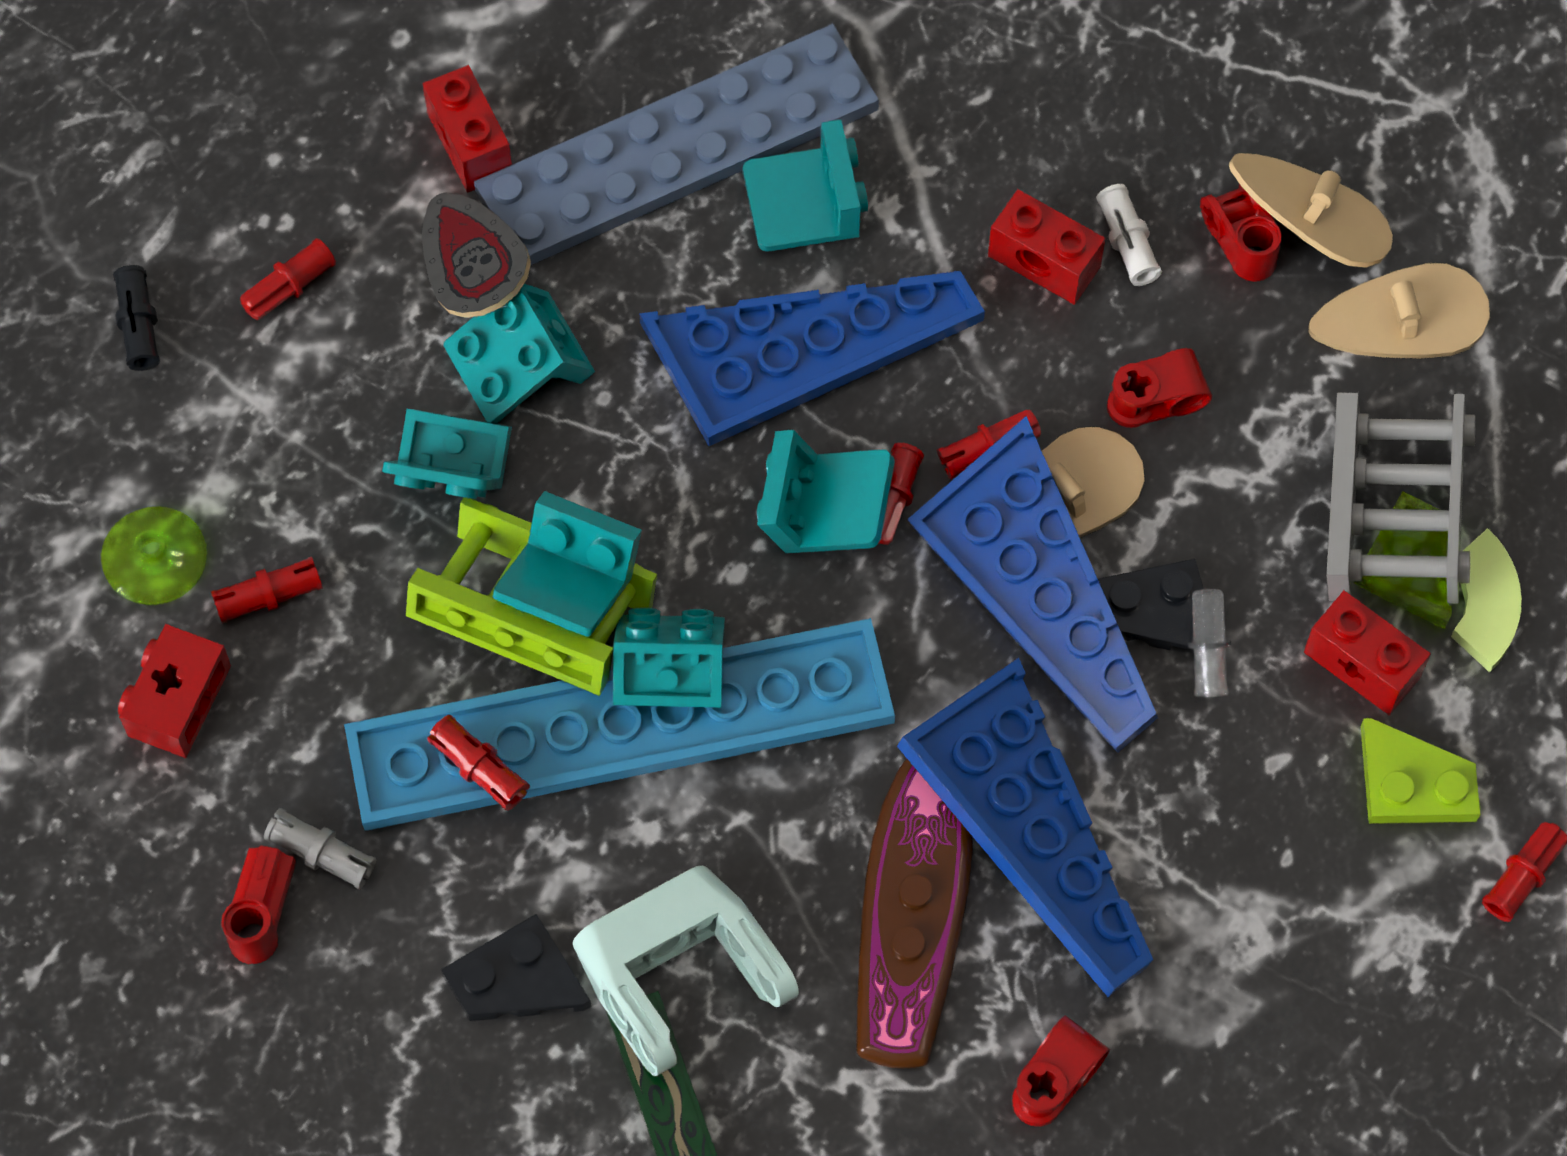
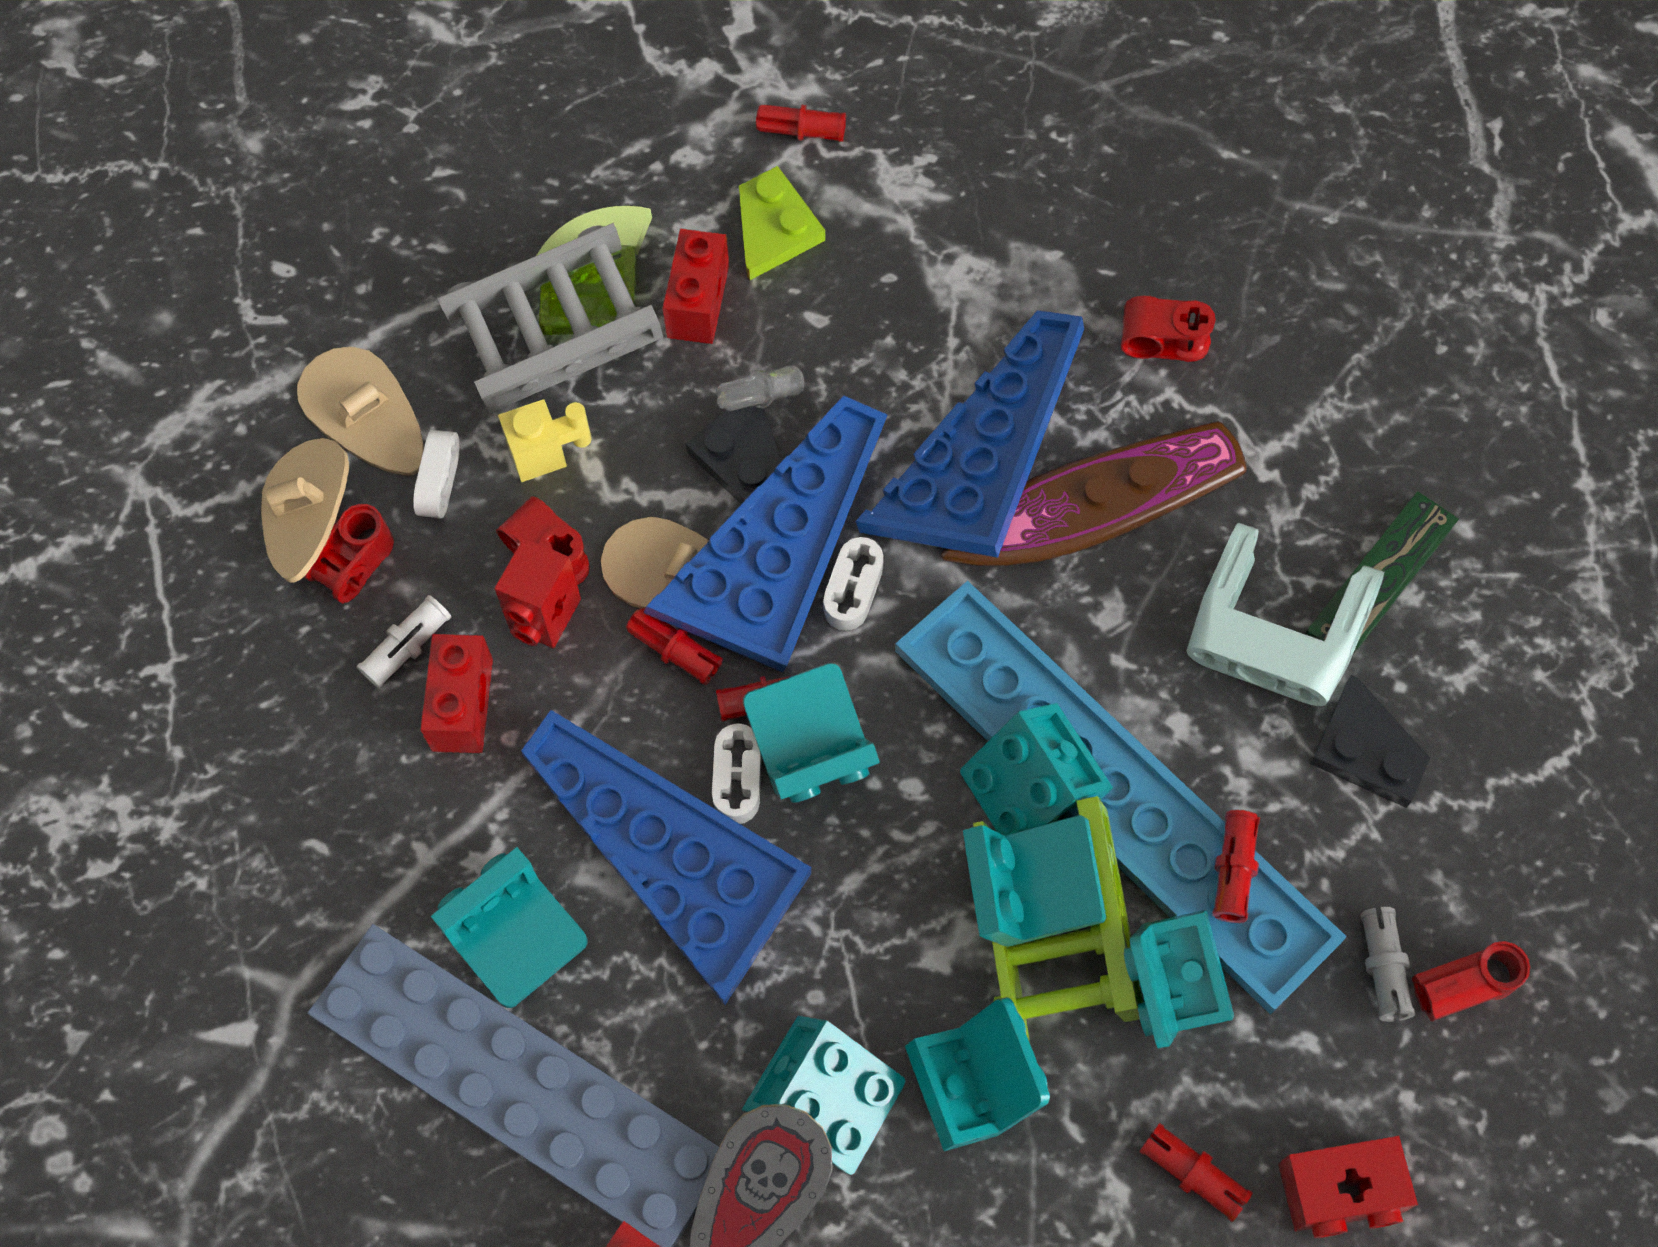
camera: 120 degrees left, 0 degrees up
(425, 643) = (1177, 976): none -> teal bracket
(838, 424) = (748, 774): none -> white beam
(951, 635) = (843, 580): none -> white beam
(1095, 340) = (538, 594): none -> red brick
(1271, 431) = (537, 439): none -> light yellow brick
(1287, 333) = (436, 474): none -> white beam

